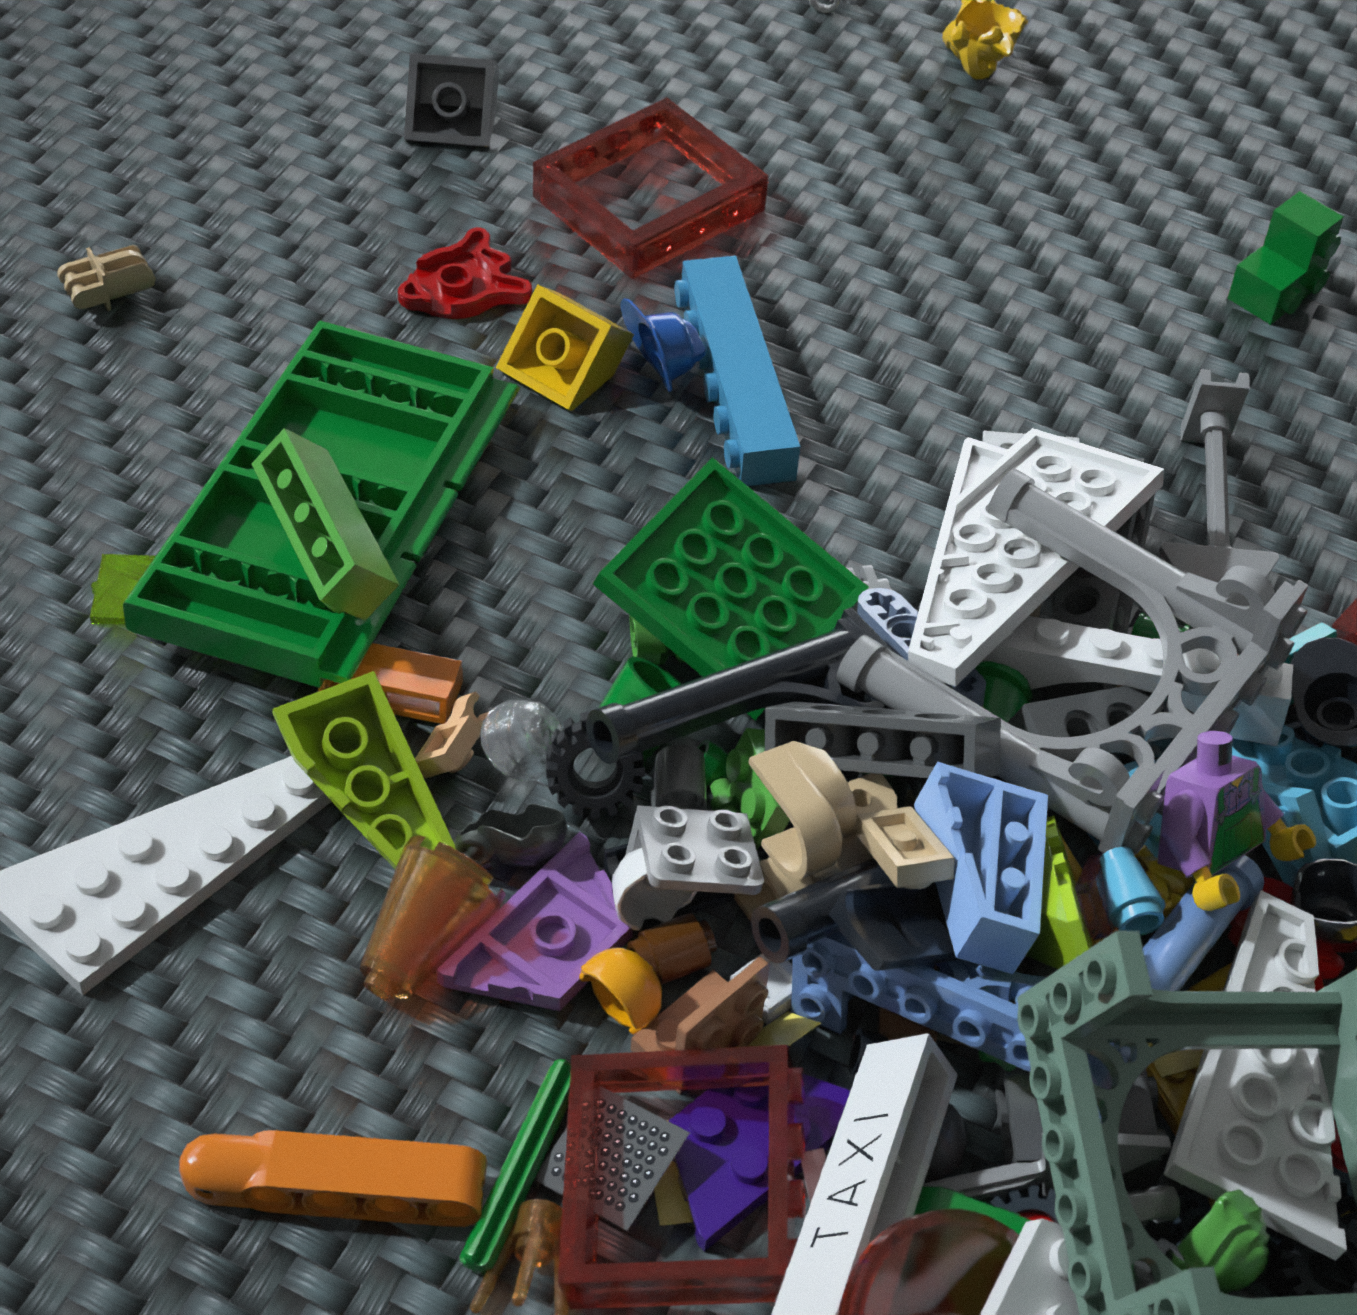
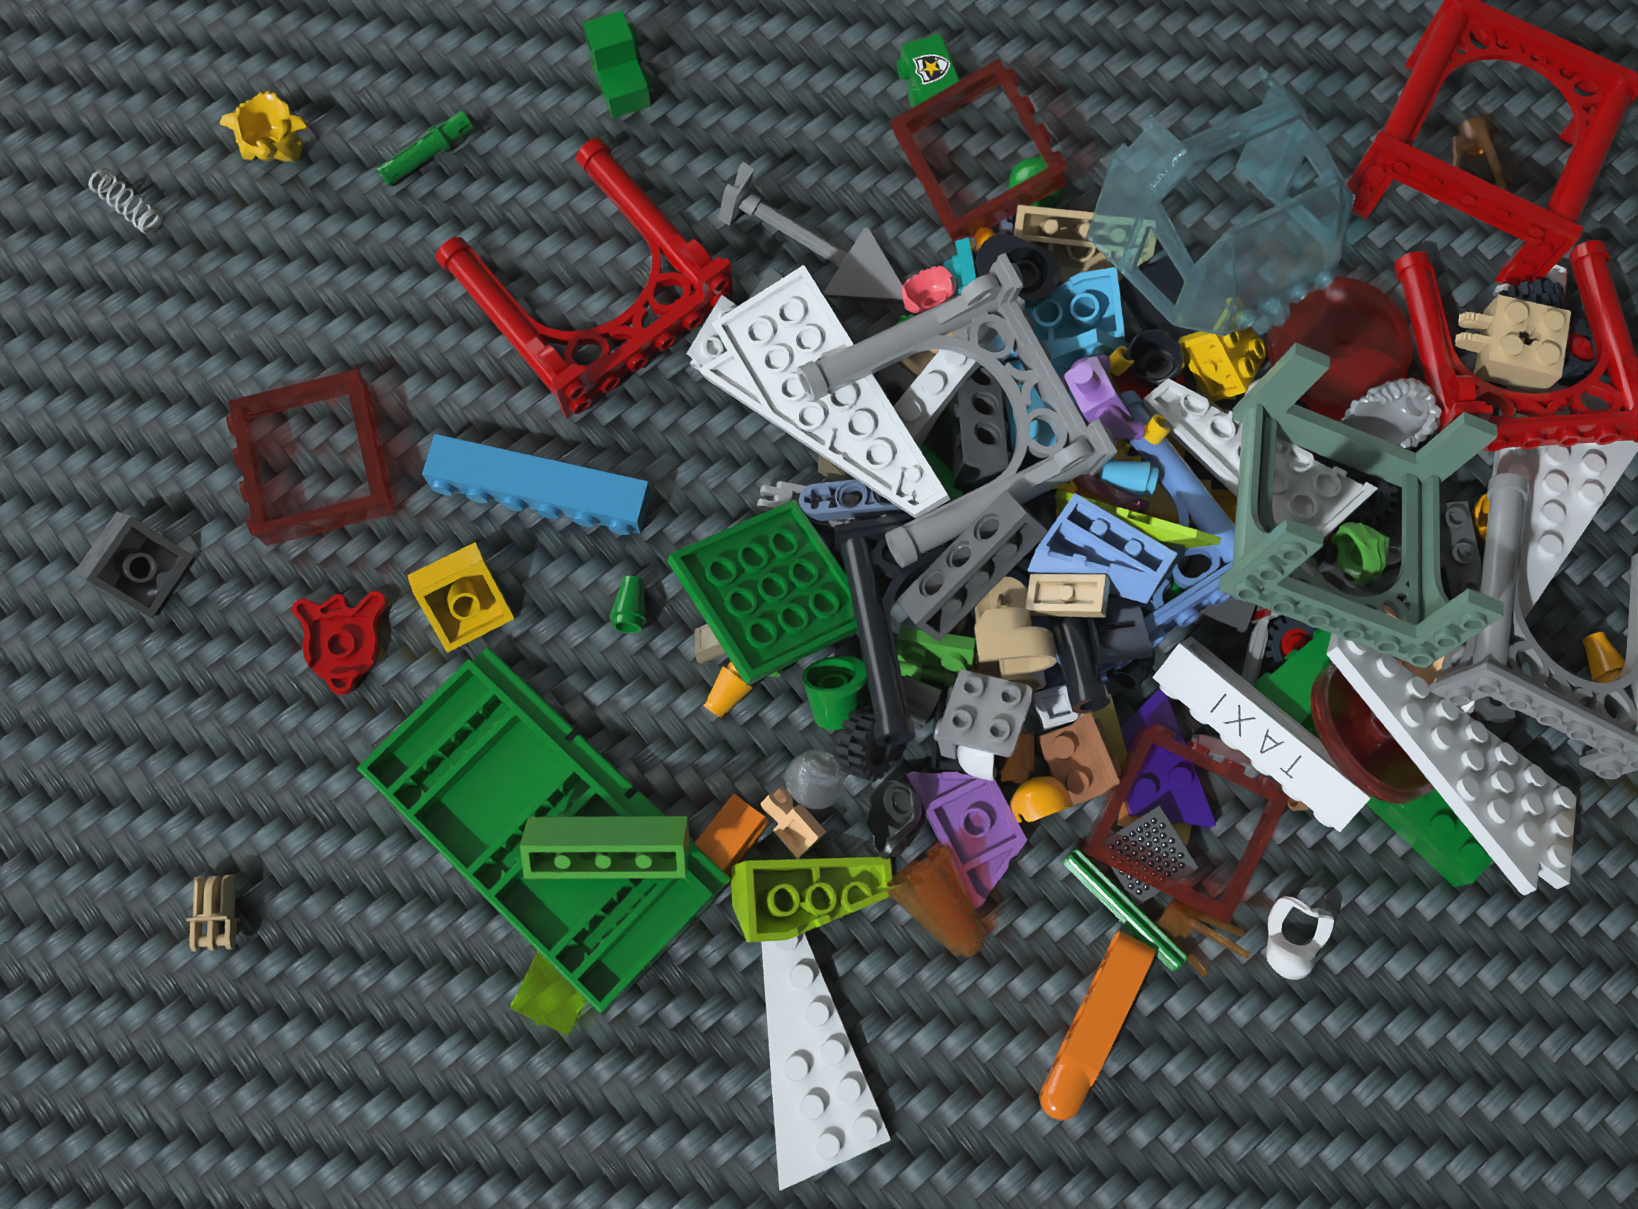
camera: 65 degrees left, 25 degrees up
(592, 621) = (727, 691): none -> light orange cone
(639, 495) = (629, 606): none -> green cone
(664, 340) = (497, 521): blue piece -> none
(979, 393) = (578, 384): none -> red arch
(1078, 163) = (430, 144): none -> green pin

